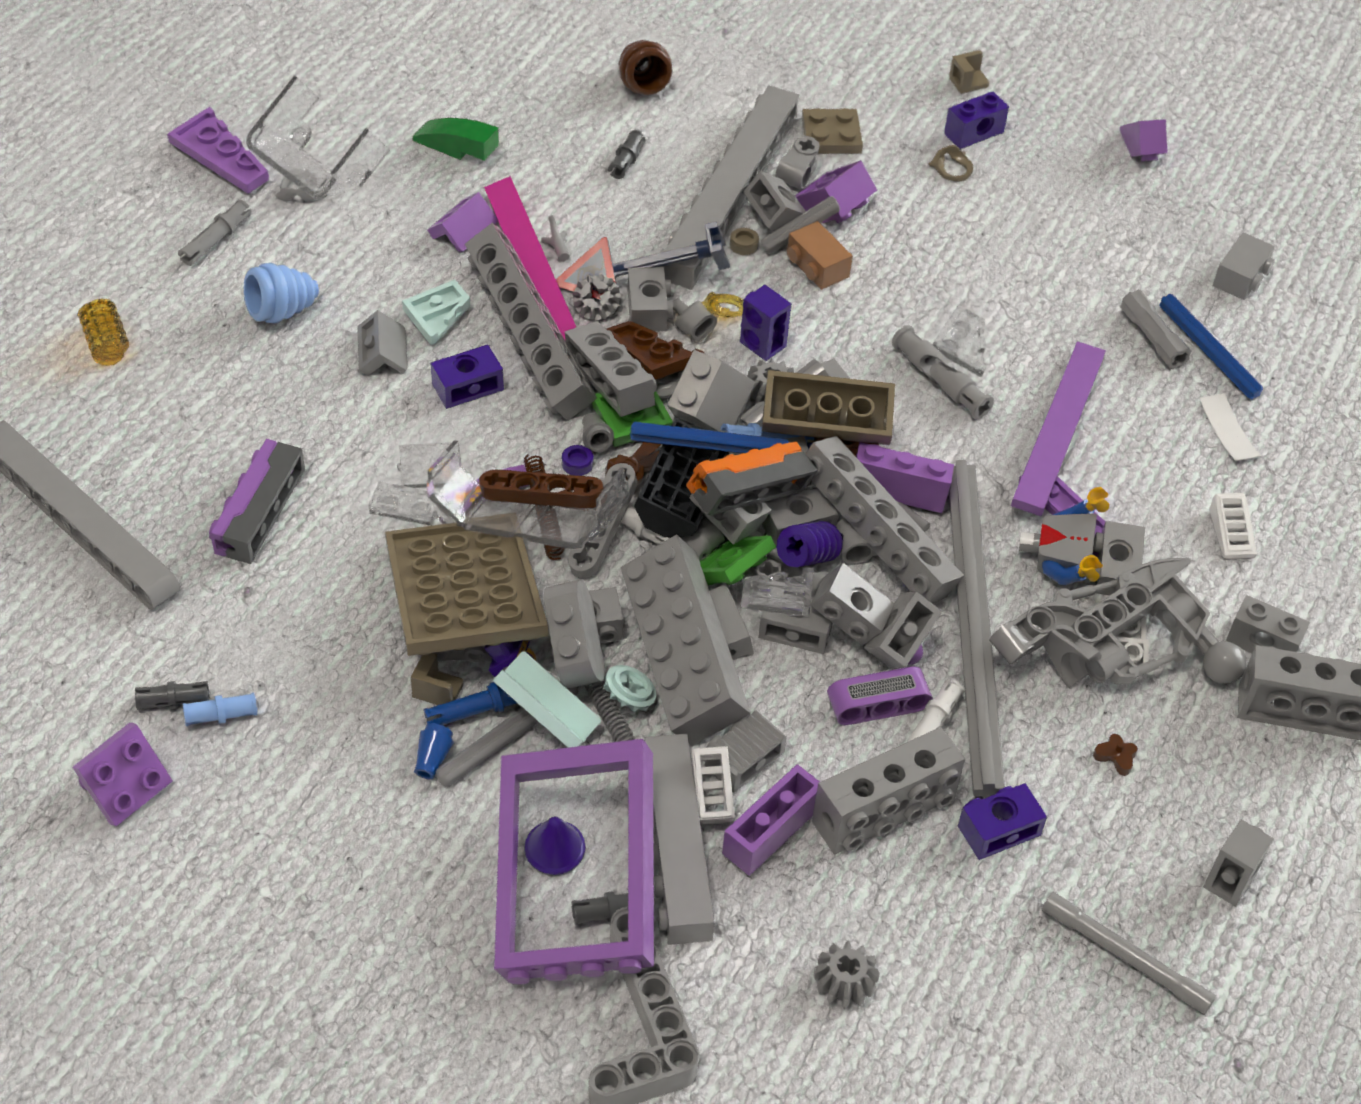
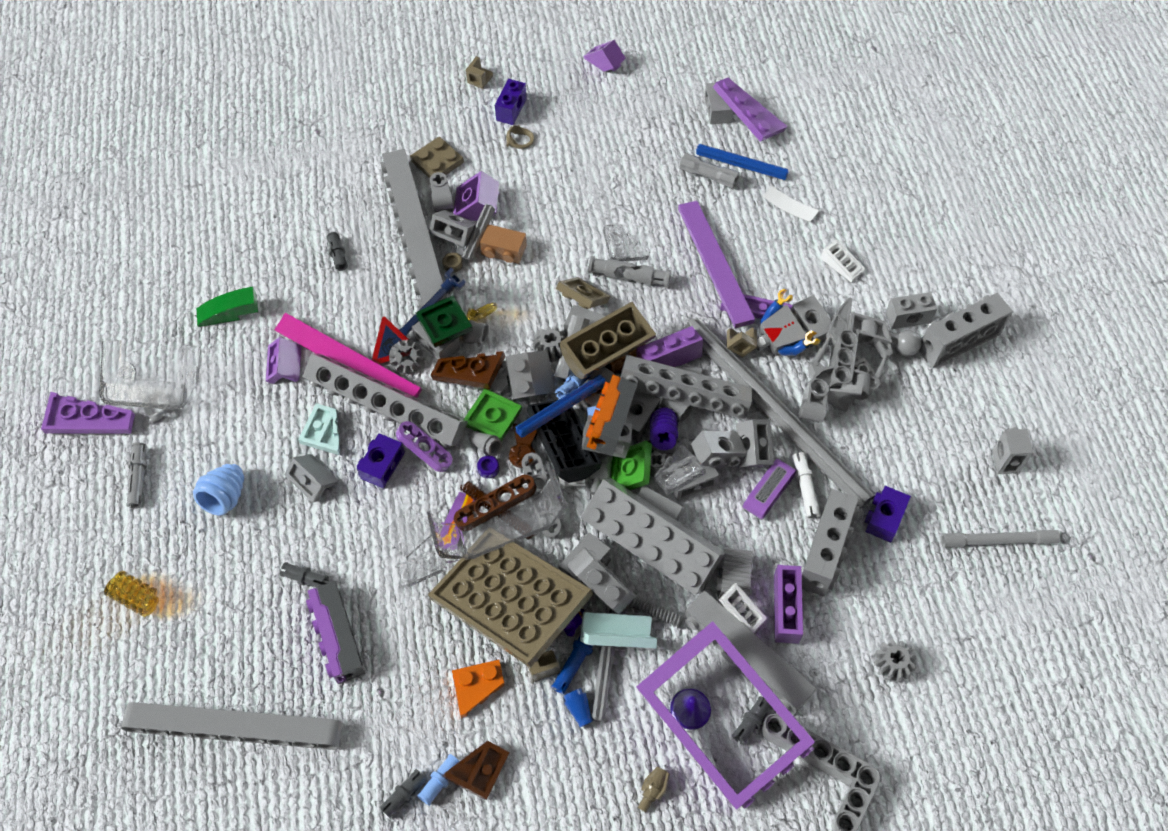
camera: 35 degrees left, 10 degrees up
(267, 728) = (479, 769): none -> reddish brown wing
(279, 428) = (303, 575): none -> dark grey pin
(350, 653) = (476, 683): none -> orange wing
(430, 888) = (654, 787): none -> dark tan piece
(520, 403) = (432, 461): none -> medium lavender beam
(557, 240) = (348, 335): light grey bar -> none
(611, 368) = (461, 397): light grey brick -> none
(638, 689) = (644, 578): light aqua gear -> none
(645, 67) = (298, 187): reddish brown piece -> none
(665, 280) = (444, 321): none -> dark green plate
(765, 322) = (517, 308): dark purple brick -> none
(858, 353) = (582, 292): none -> dark tan plate
(1001, 525) = (742, 342): none -> dark tan panel
(1117, 752) = (900, 430): reddish brown piece -> none
(1272, 296) = (751, 112): none -> medium lavender wing

